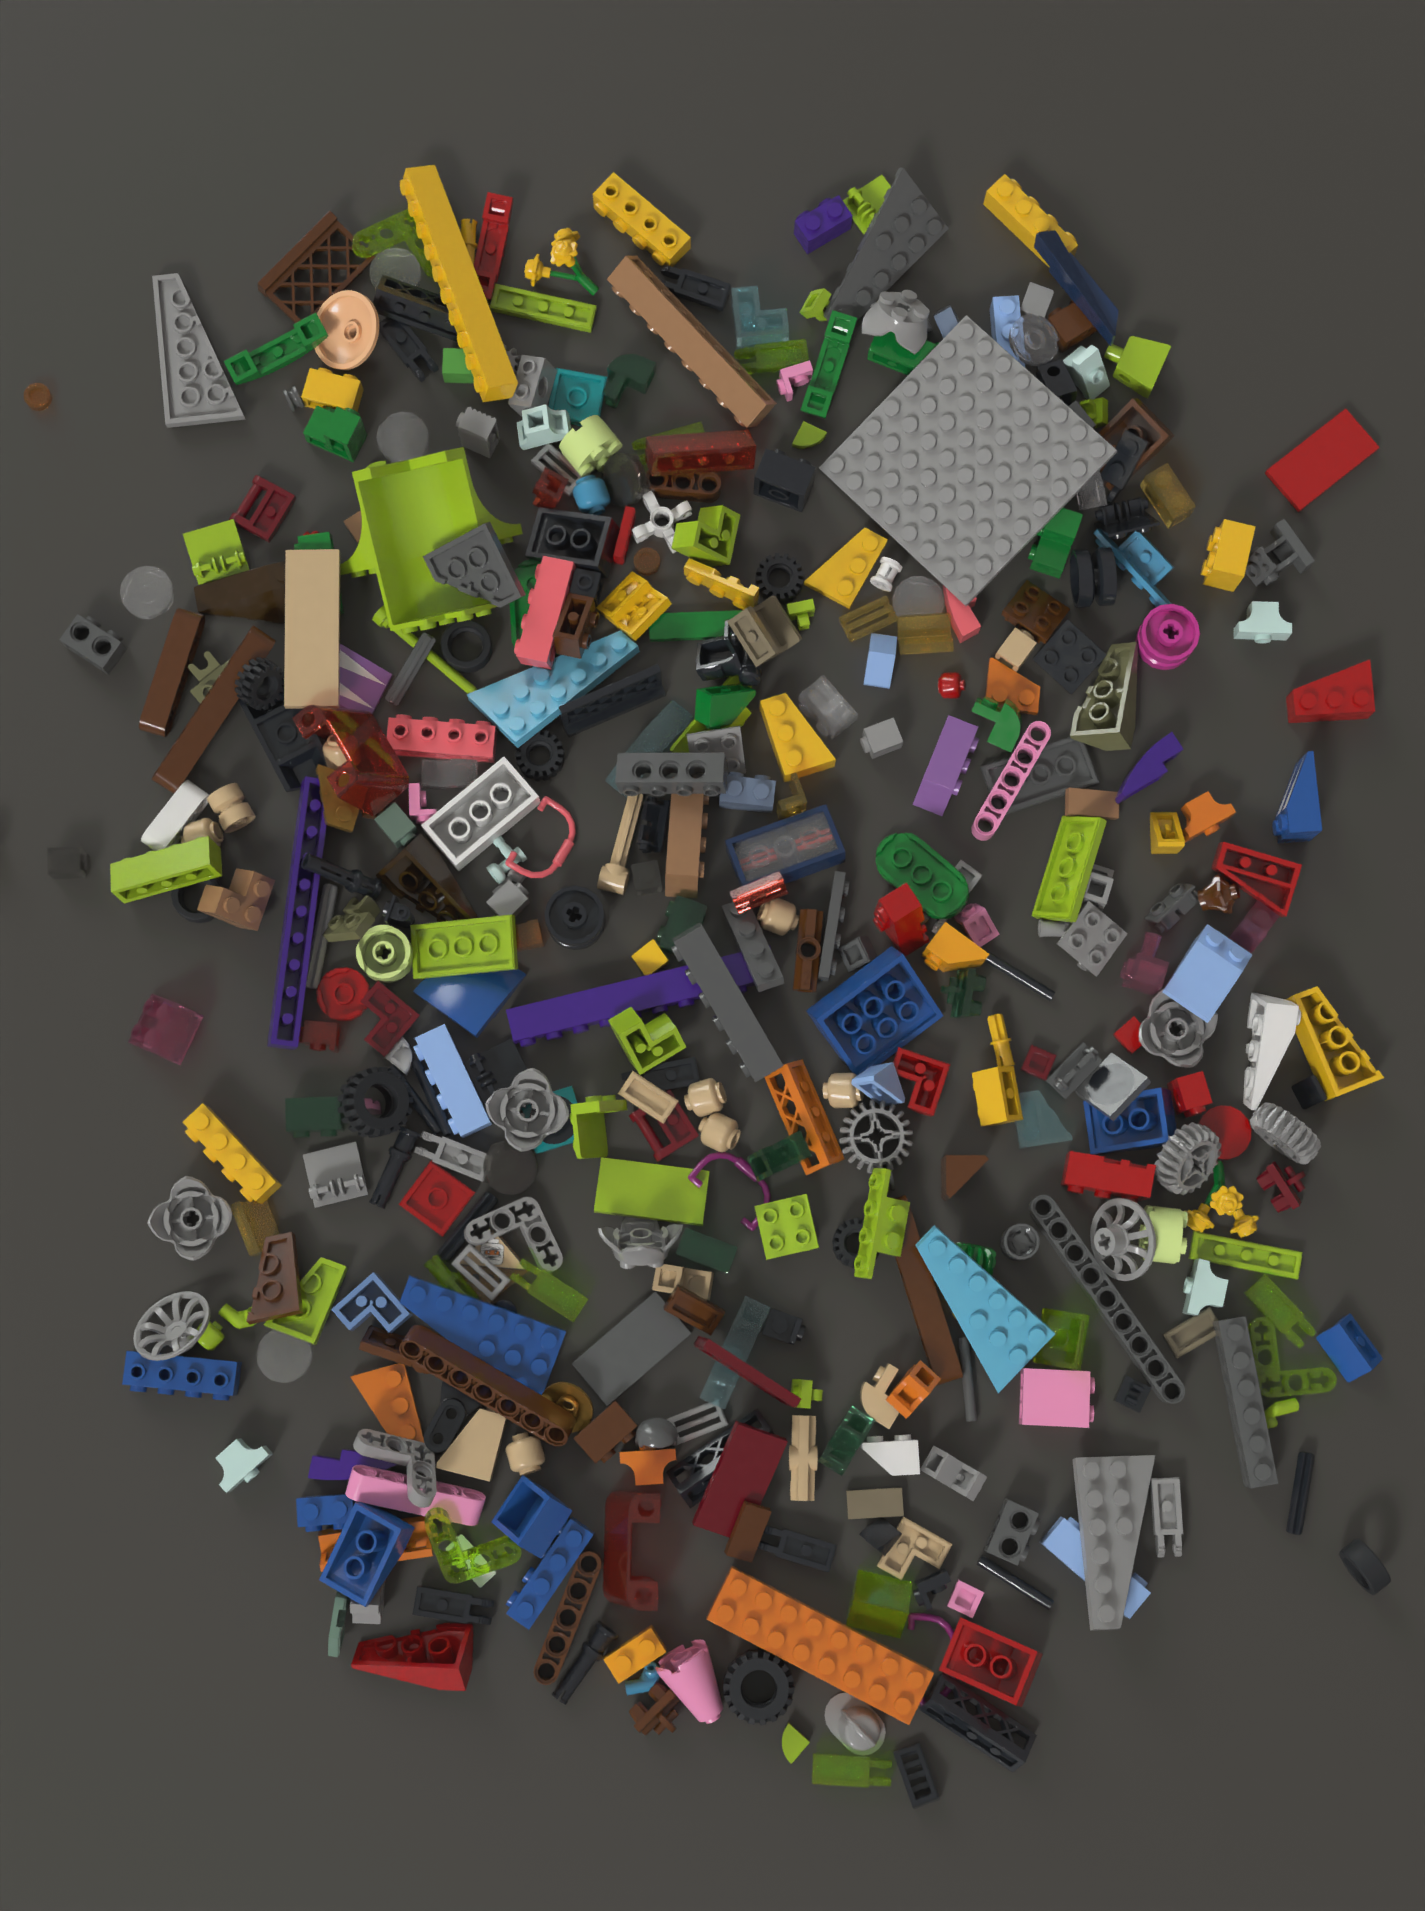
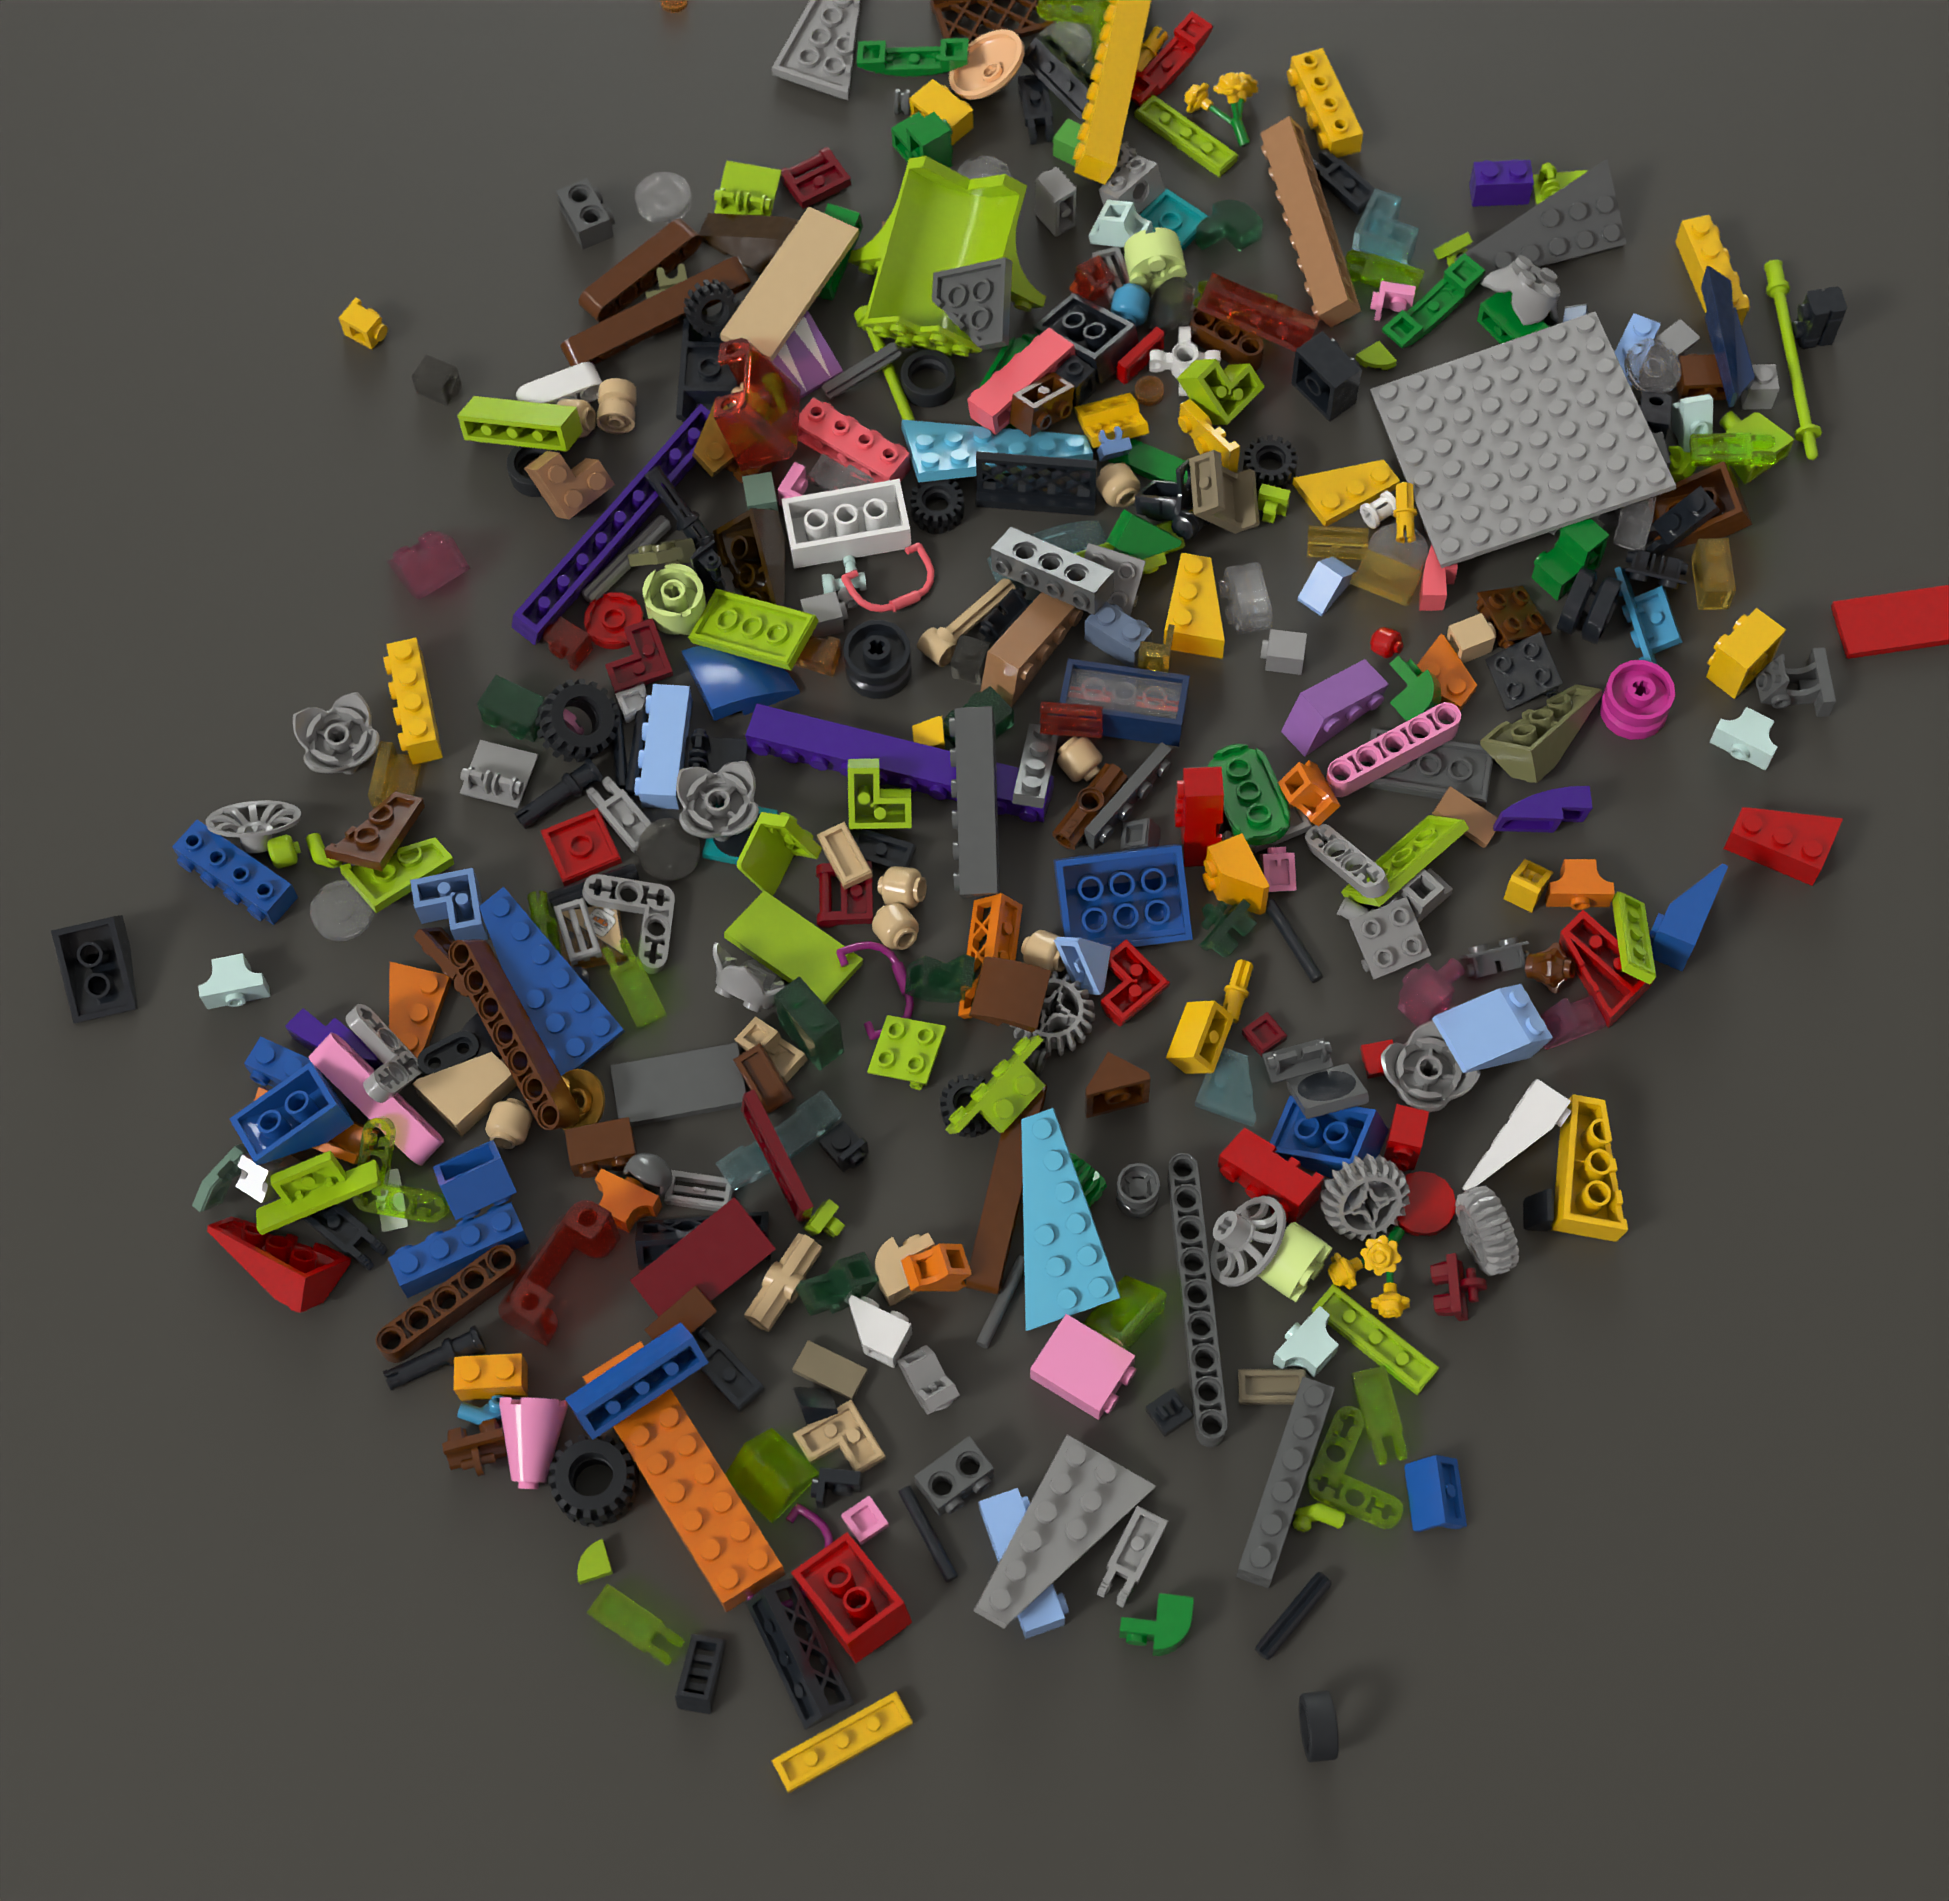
camera: 35 degrees right, 15 degrees down
(124, 1511) = (96, 968): none -> black slope
(417, 1594) = (312, 1188): none -> lime bracket
(654, 634) = (1113, 448): none -> medium blue tile
(674, 662) = (1118, 485): none -> tan head
(753, 1604) = (636, 1380): none -> blue brick
(843, 1144) = (1010, 993): none -> reddish brown slope
(855, 1724) = (671, 1583): light grey piece -> none
(909, 568) = (1405, 512): none -> yellow axle
(968, 851) = (1309, 792): none -> orange brick
(1028, 894) = (1341, 864): none -> light grey beam
(1043, 1765) = (842, 1742): none -> yellow tile
(1087, 210) = (1778, 289): none -> lime bar
(1126, 306) = (1764, 388): none -> light grey brick
(1129, 384) = (1731, 448): none -> clear neon green hinge
(1136, 224) = (1819, 317): none -> black brick
(1223, 1555) = (1168, 1630): none -> green brick
(1271, 843) = (1633, 937): none -> lime tile

